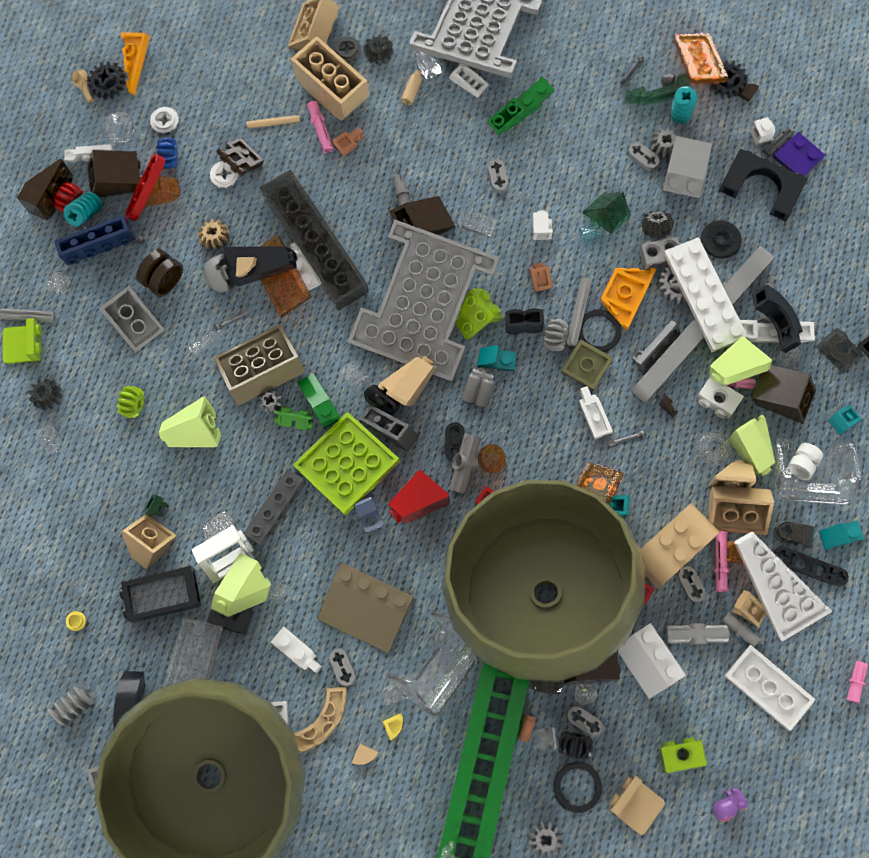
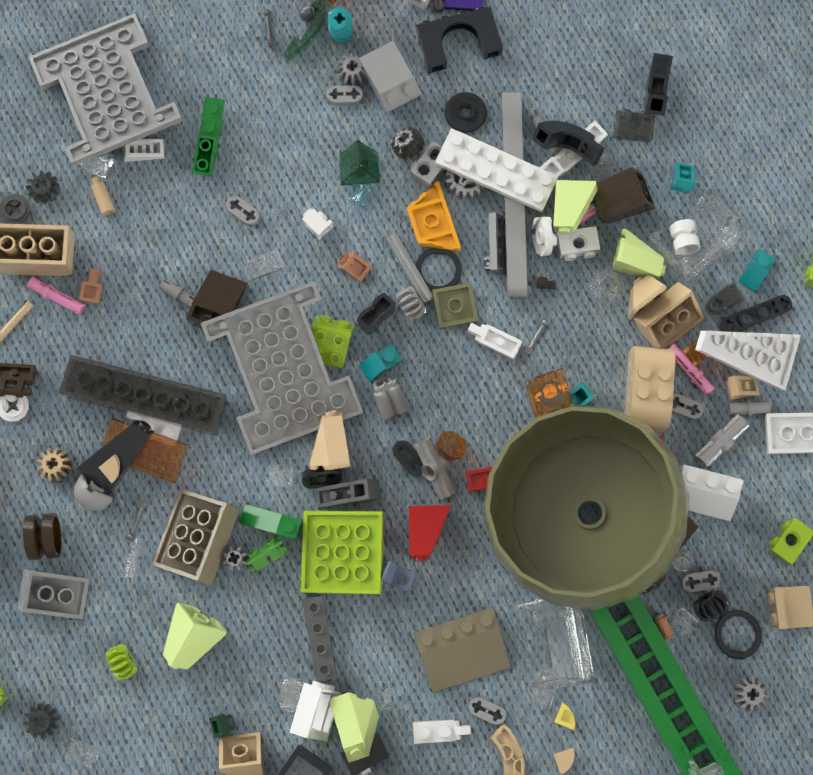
camera: 50 degrees left, 5 degrees up
(696, 372) = (544, 238): none -> white plate

